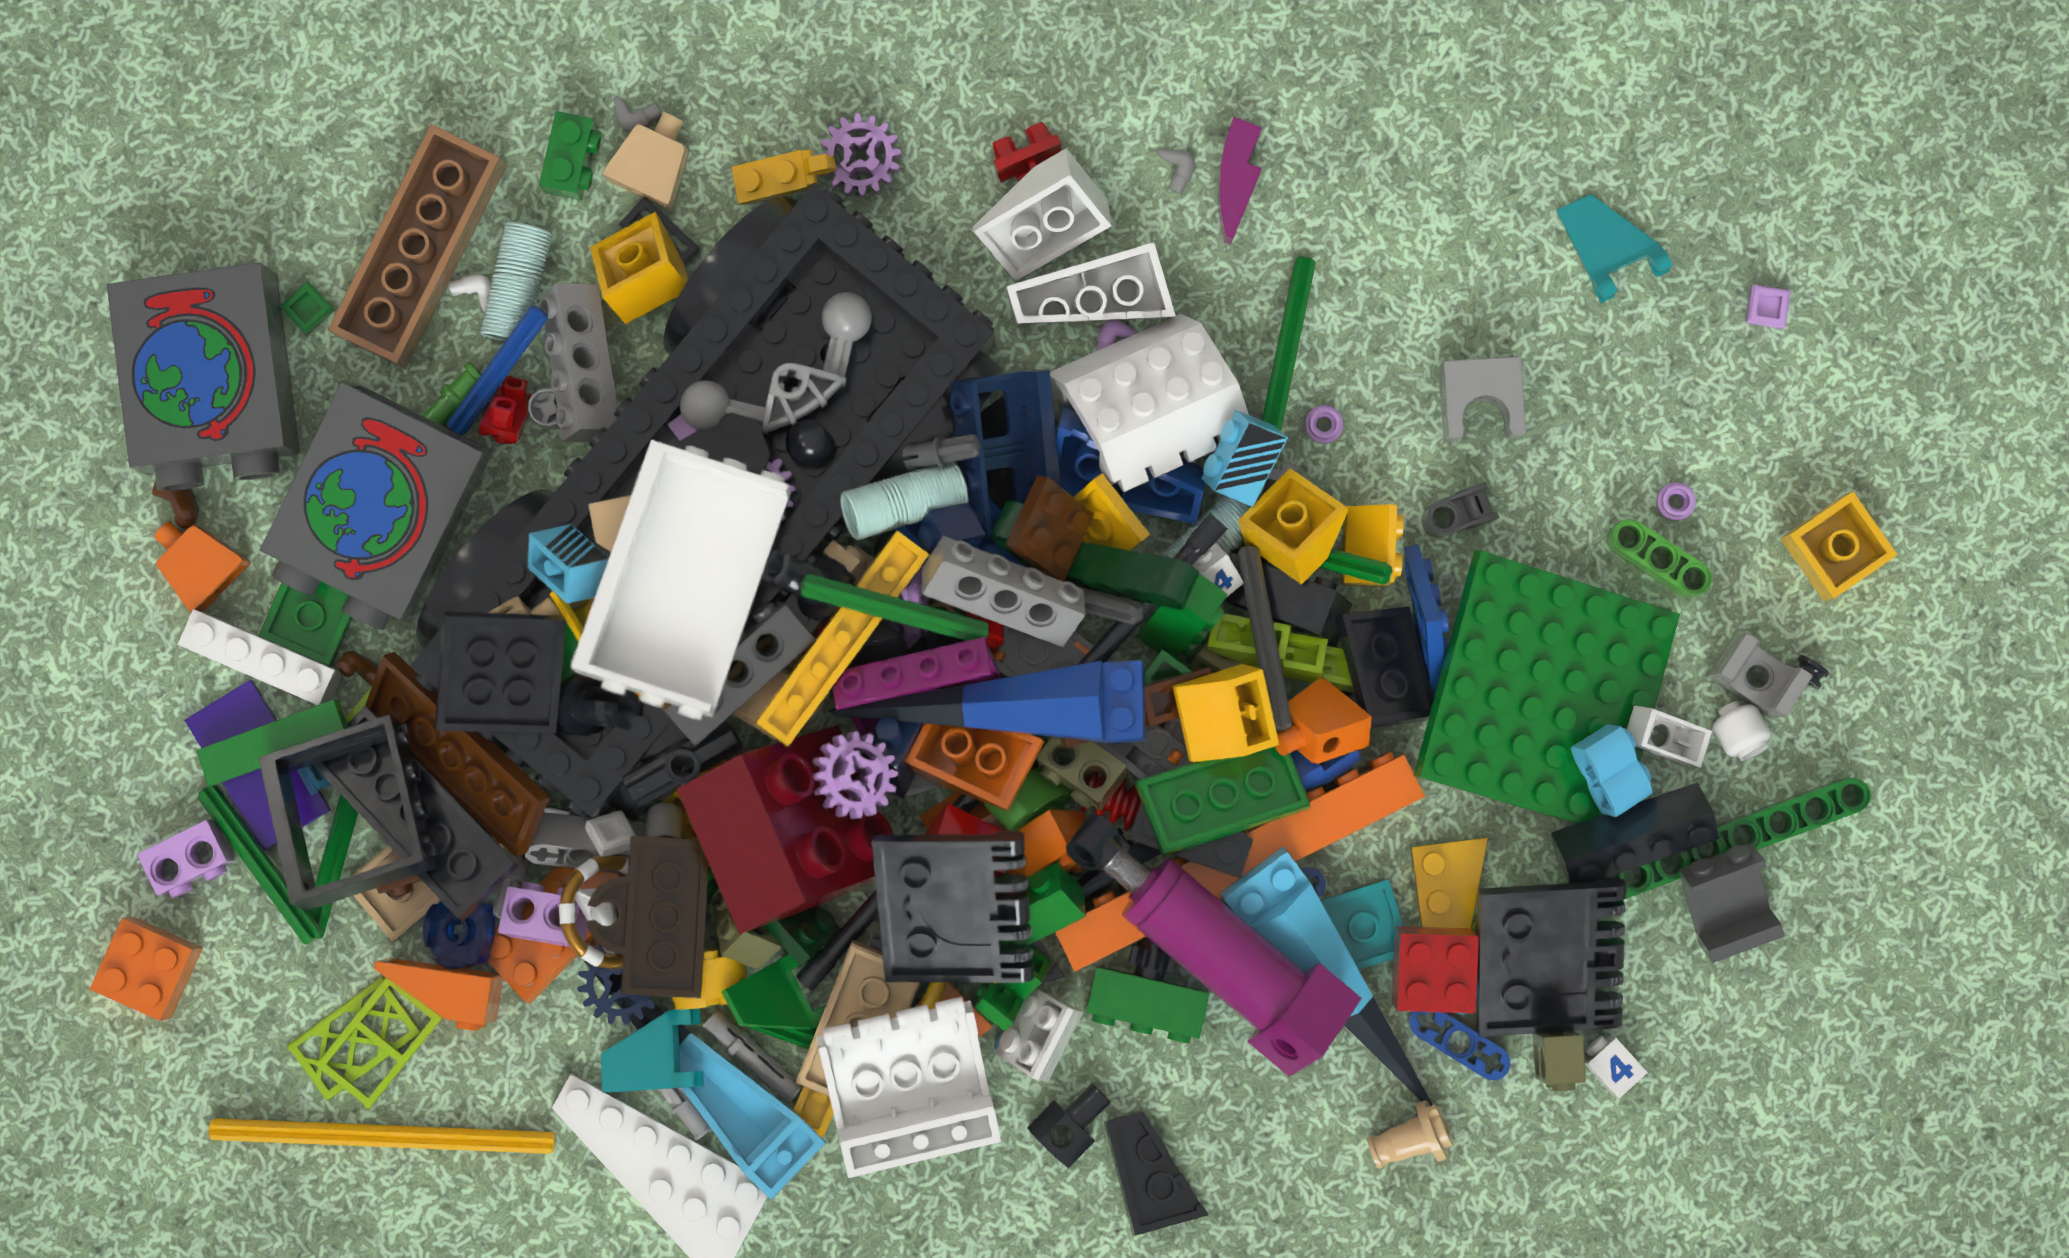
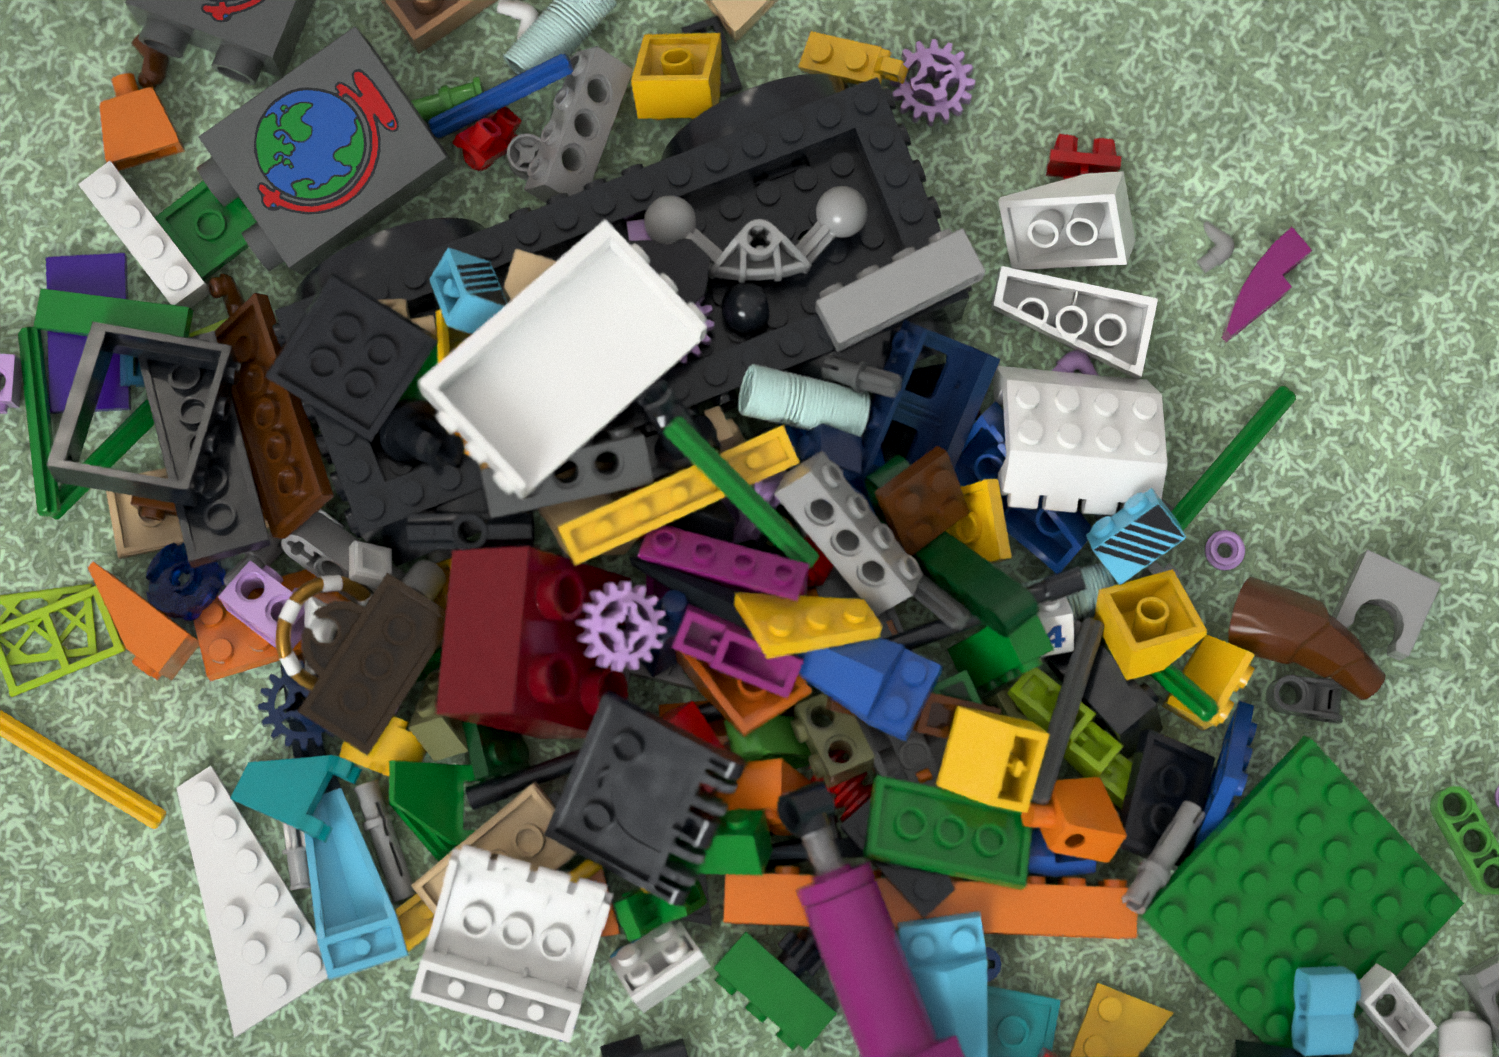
camera: 25 degrees right, 5 degrees down
(933, 358) = (899, 289): none -> light grey brick
(962, 742) = (734, 651): none -> magenta slope
(1011, 688) = (807, 624): none -> yellow wing
(1412, 706) = (1156, 869): none -> light grey pin
(1420, 460) = (1299, 630): none -> reddish brown piece

